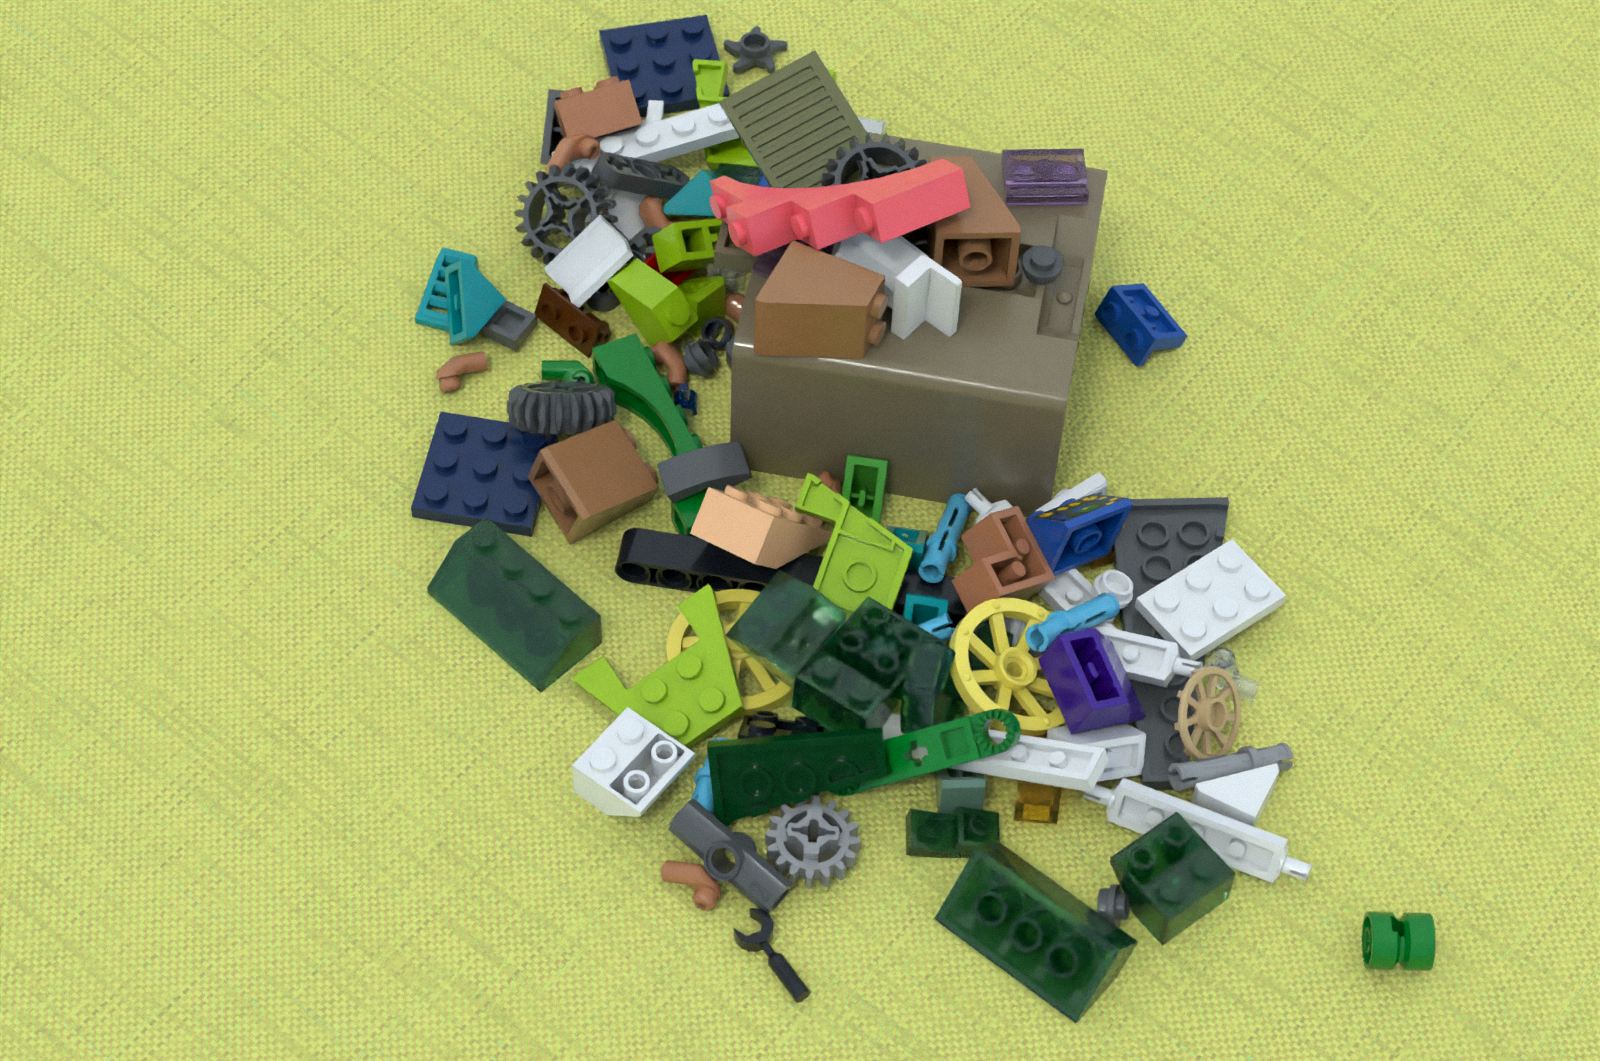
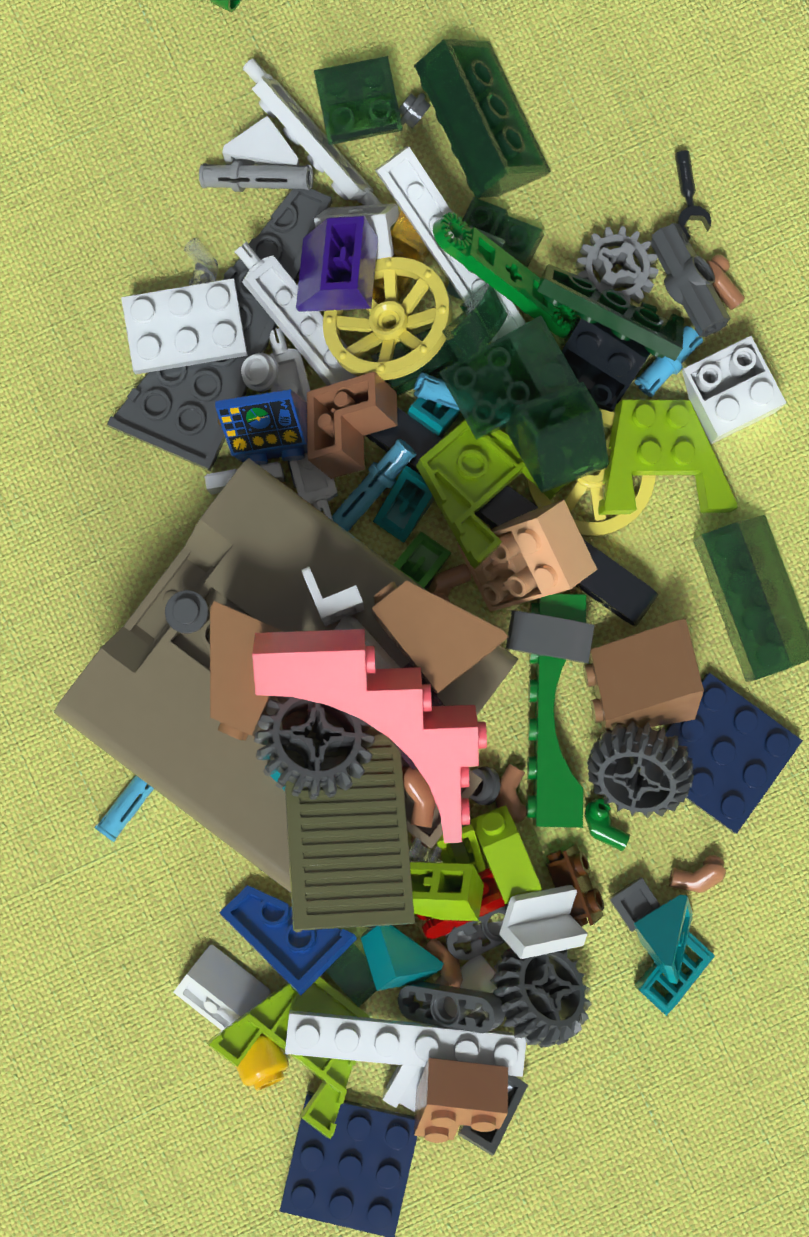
camera: 155 degrees left, 30 degrees up
(574, 148) = (510, 1057): nougat arm -> none
(686, 398) = (517, 745): hand -> none
(754, 50) = (253, 1143): dark grey animal -> none
(1044, 176) = (127, 712): clear purple plate -> none
(1075, 619) = (334, 327): medium azure pin -> none
(1138, 322) = (69, 641): blue bracket -> none
(1209, 712) = (250, 220): tan wheel -> none

